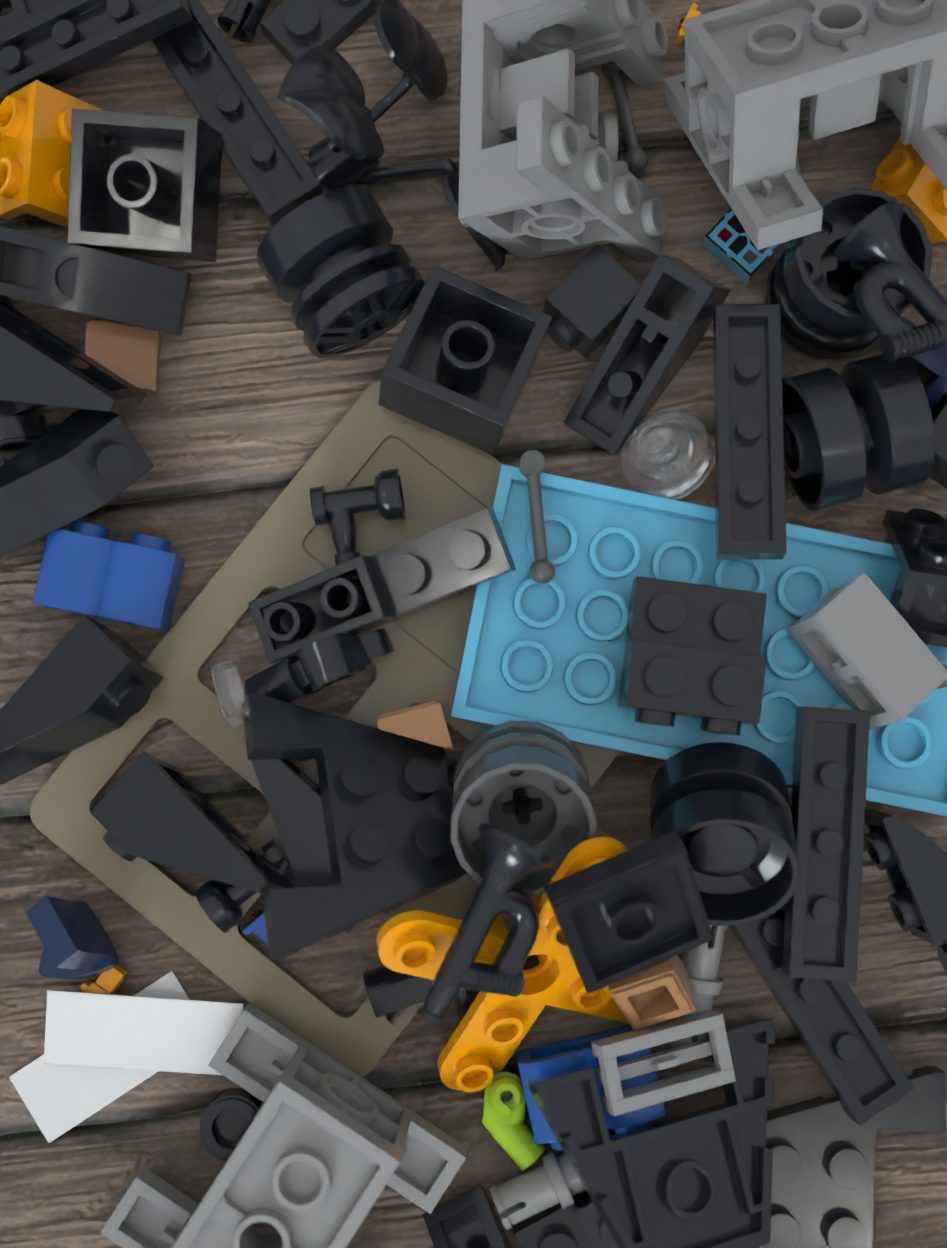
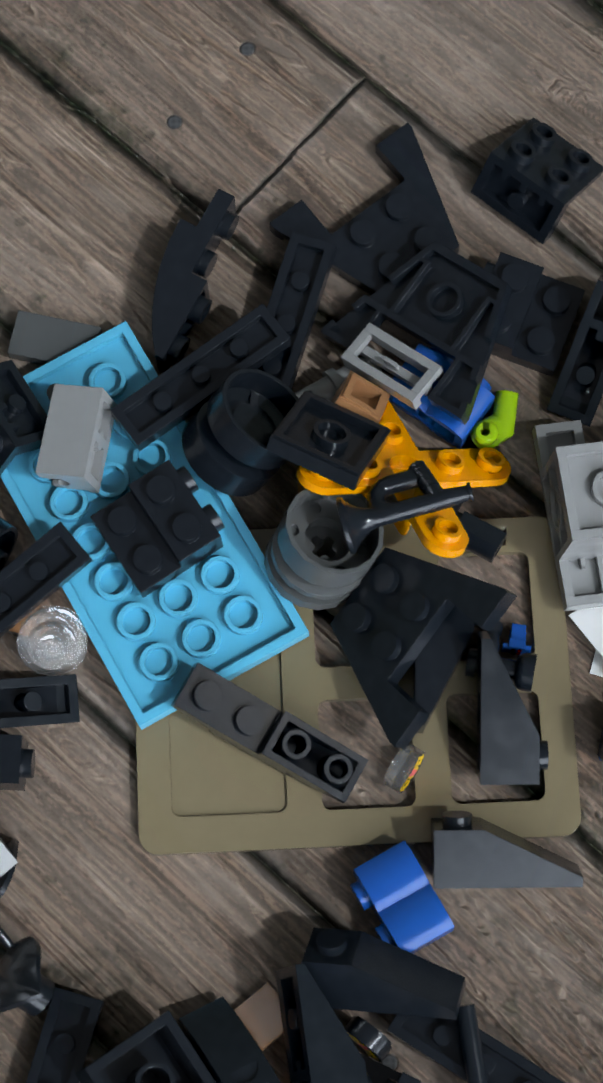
camera: 130 degrees left, 10 degrees down
(319, 665) = (345, 723): black bar -> none
(339, 507) = (244, 801): black piece -> none
(340, 270) = (104, 914): black wheel -> none
(420, 722) = (327, 648): medium nougat slope -> none
(462, 359) = (95, 799): black brick -> none
(532, 465) = (125, 706): dark grey hinge -> none
(537, 1190) = (517, 376): light grey pin -> none

